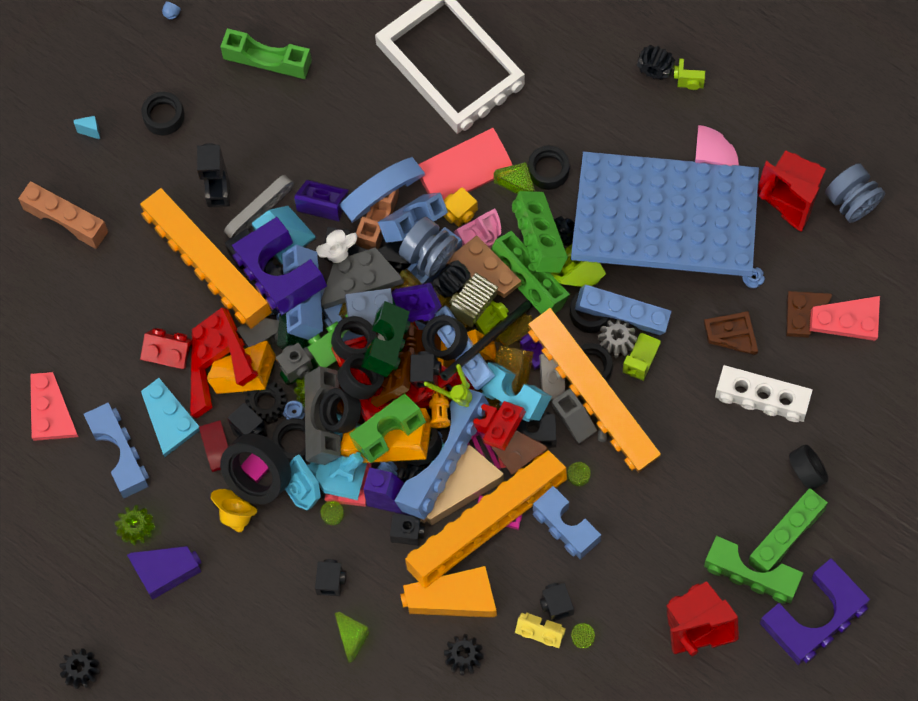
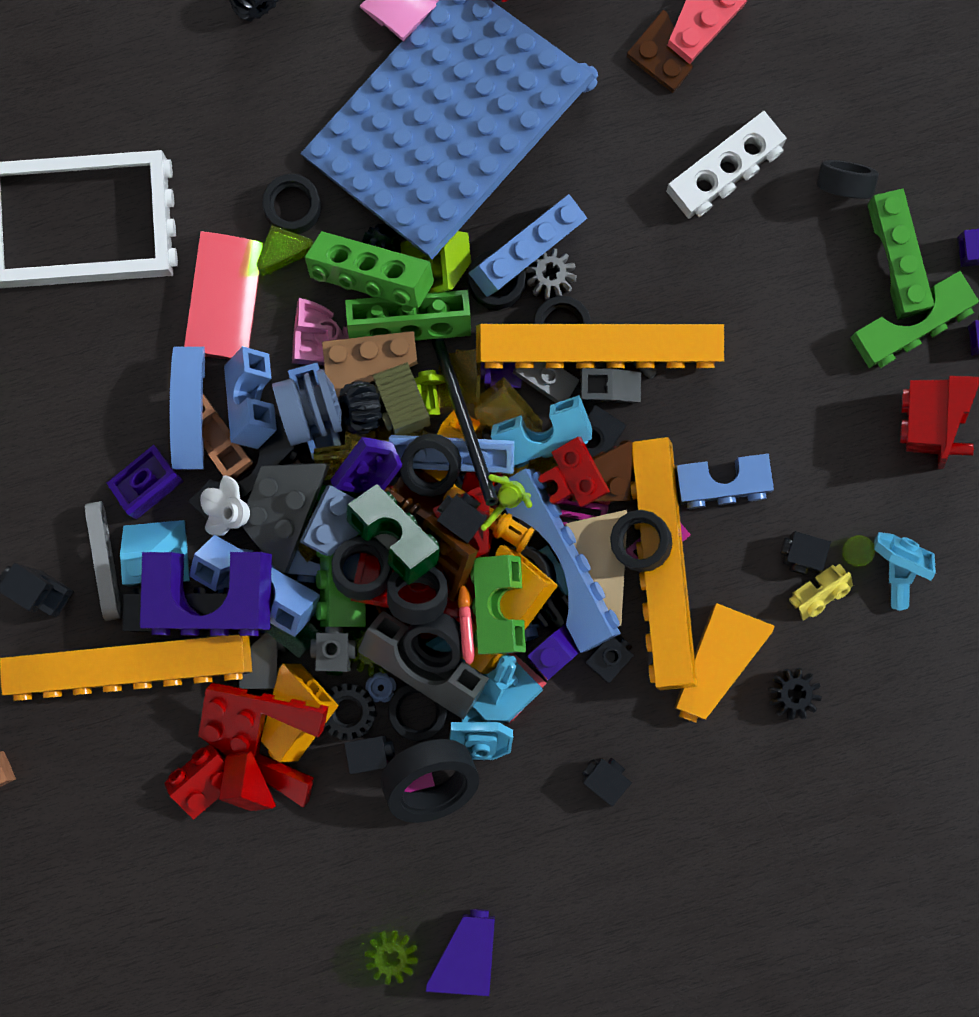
camera: 55 degrees left, 15 degrees up
(48, 409) = (178, 963): coral wing -> none
(127, 473) = (325, 923): medium blue arch -> none
(168, 416) = (287, 833): medium azure wing -> none
(180, 371) = (244, 783): none -> red slope
(214, 443) = (358, 802): dark red slope -> none
(232, 509) = (454, 834): yellow piece -> none
(332, 512) = (529, 725): clear neon green tile -> none
(352, 635) = (688, 800): clear neon green slope -> none
(361, 417) = (466, 627): none -> coral piece
(460, 207) = (269, 335): yellow brick -> none
(489, 475) = (621, 528): none -> black tyre
(578, 474) = (674, 426): clear neon green tile -> none
(594, 663) = (905, 562): none -> medium azure piece
(641, 356) = (590, 263): lime bracket -> none
(732, 332) = (632, 146): reddish brown wing -> none

